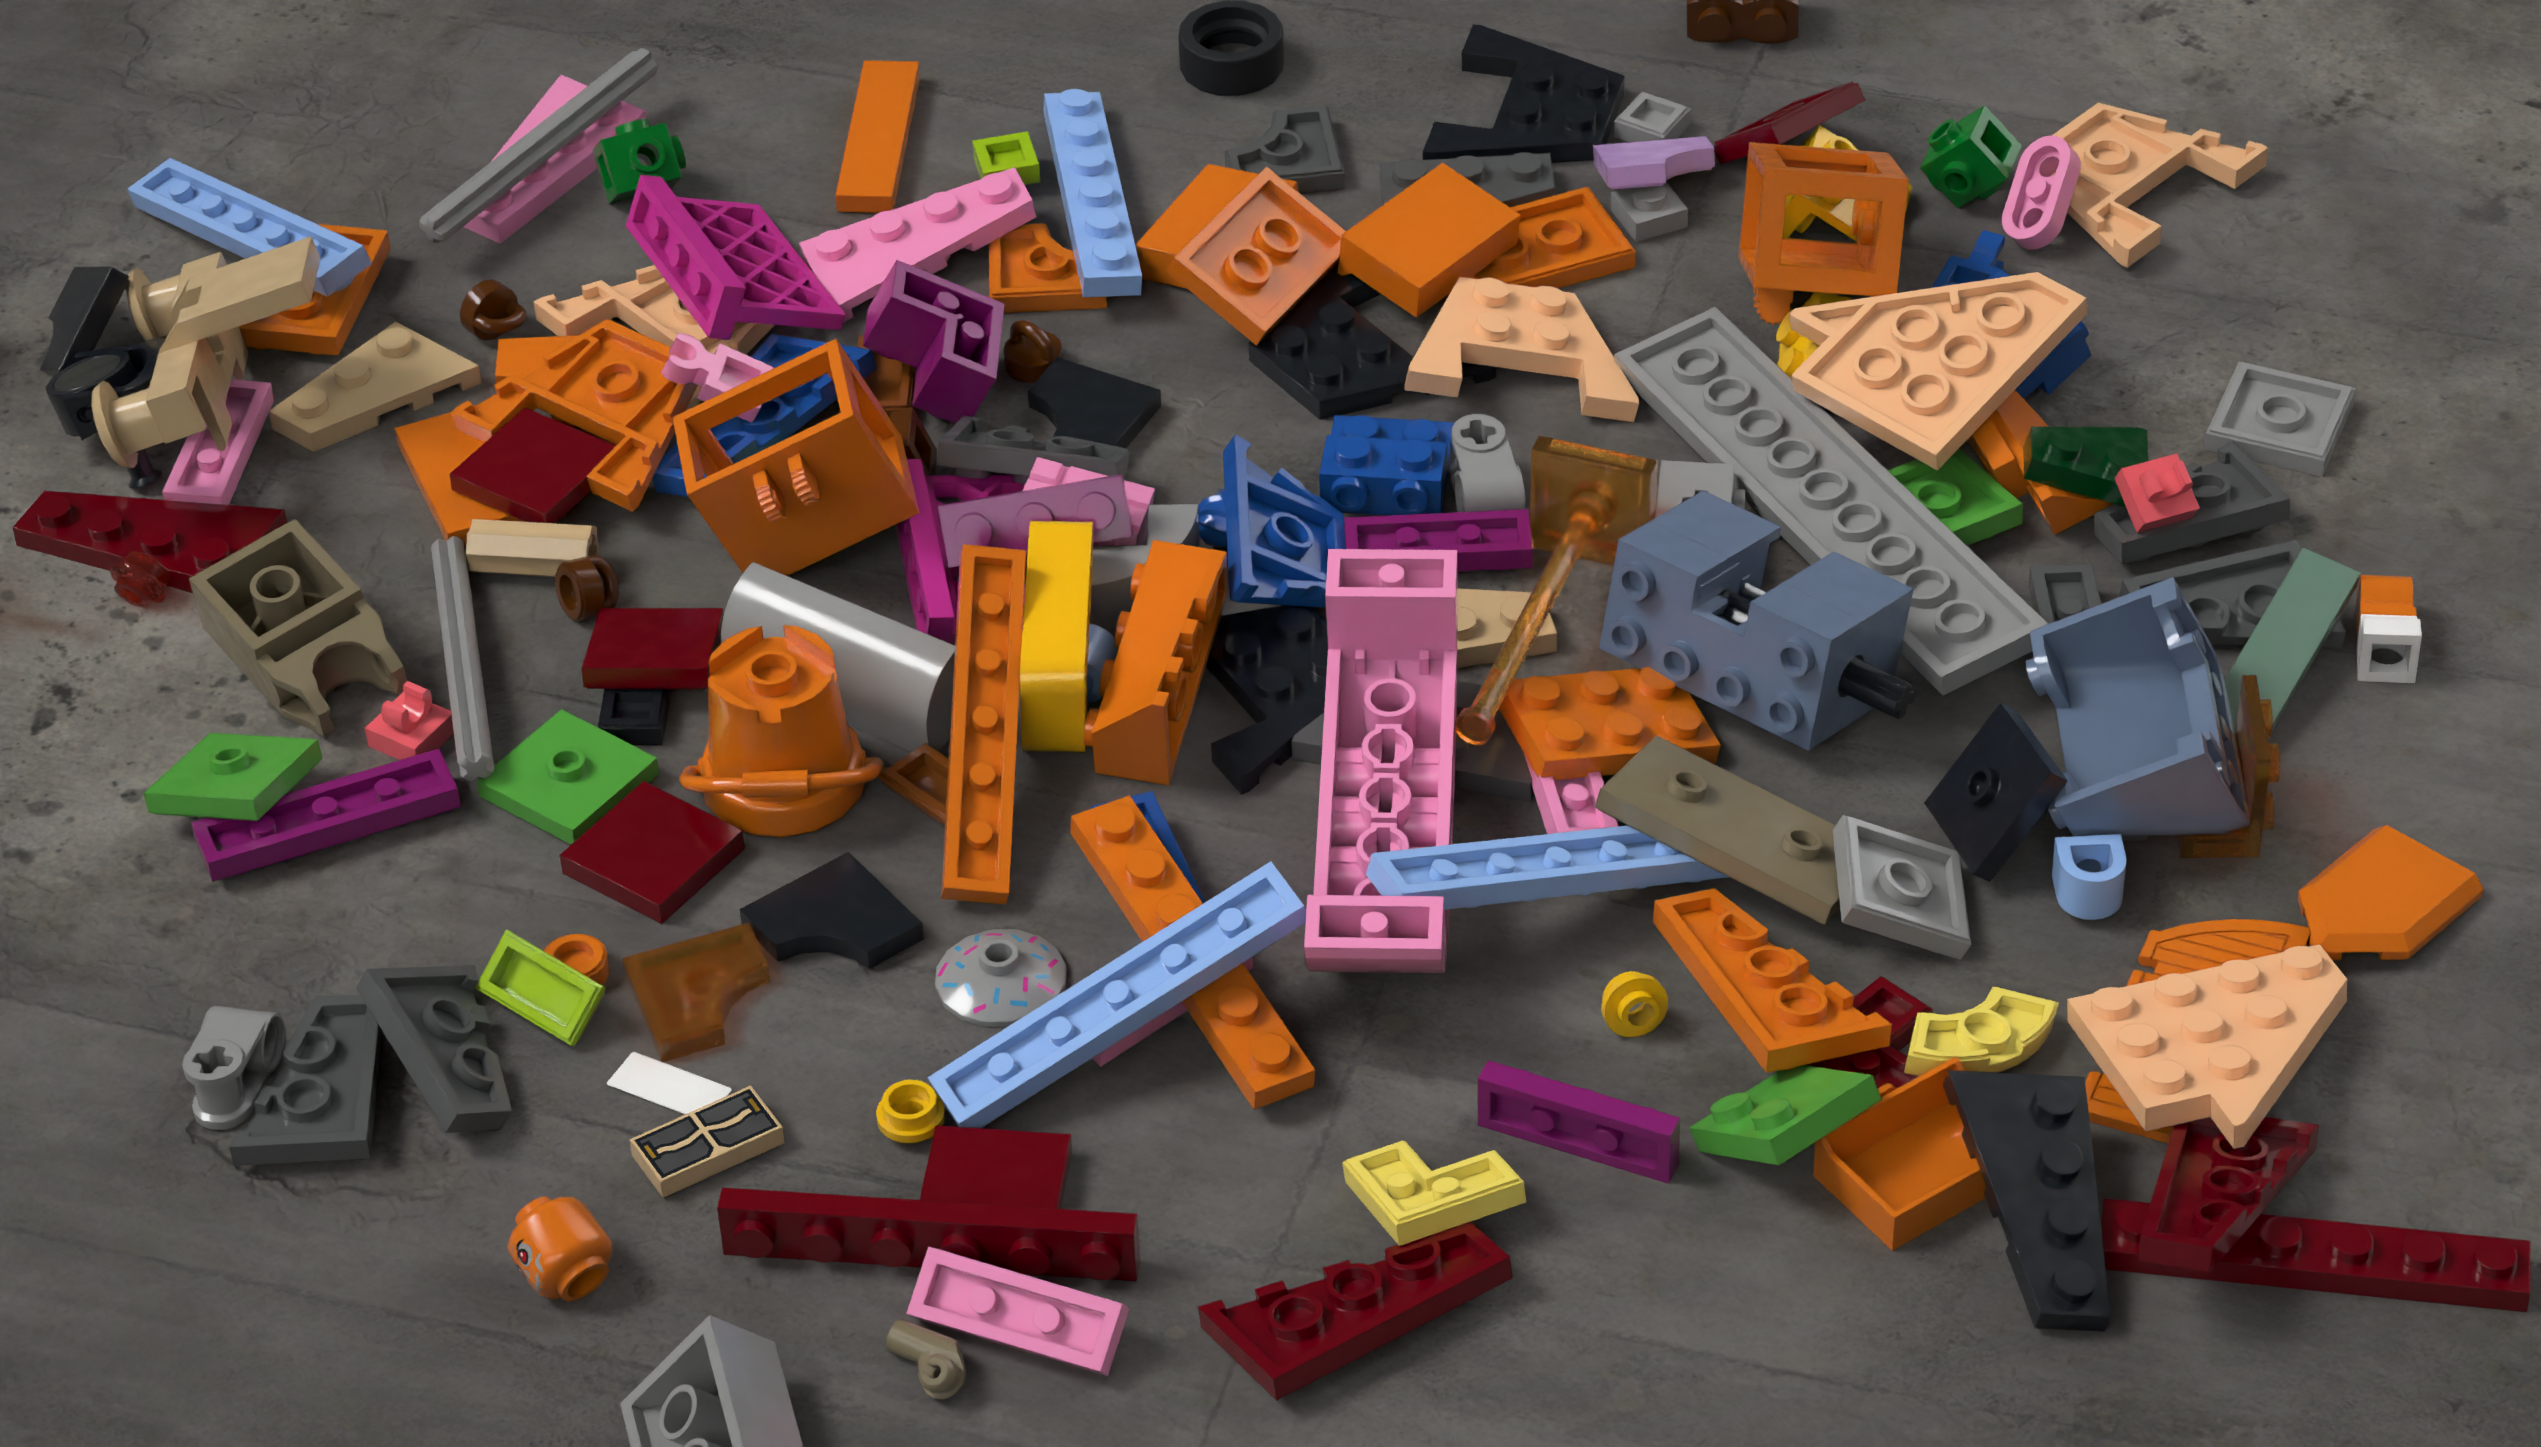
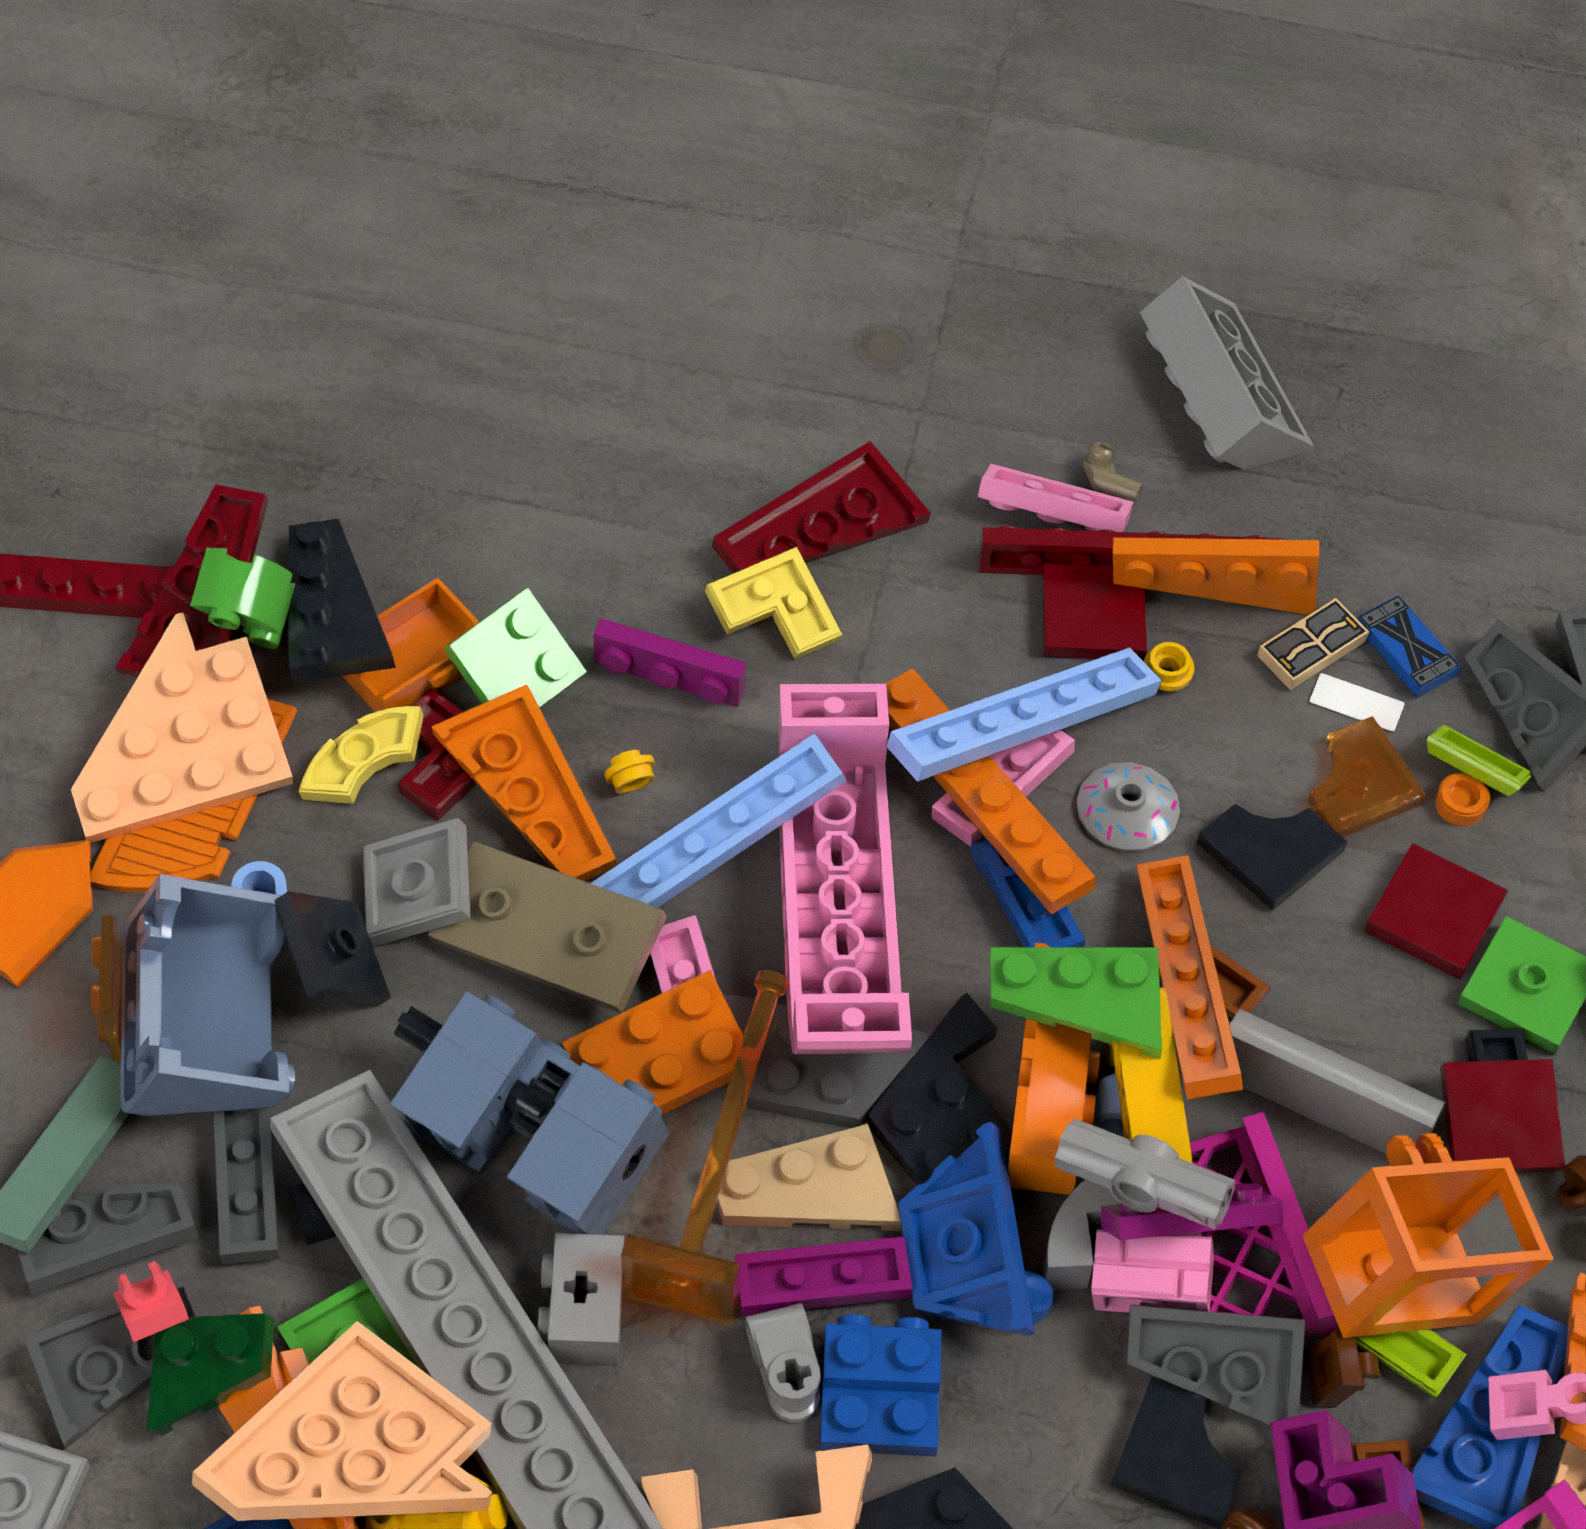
camera: 170 degrees right, 15 degrees up
(560, 1248) = (1389, 533): orange head -> none
(581, 1135) = (1408, 646): none -> tile
(778, 737) = (1357, 977): orange piece -> none
(788, 1155) = (1229, 570): none -> orange wing
(1089, 484) = (1144, 1173): none -> light grey piece
(1117, 649) = (1085, 988): none -> bright green wing
(2145, 1126) = (244, 595): none -> bright green cylinder

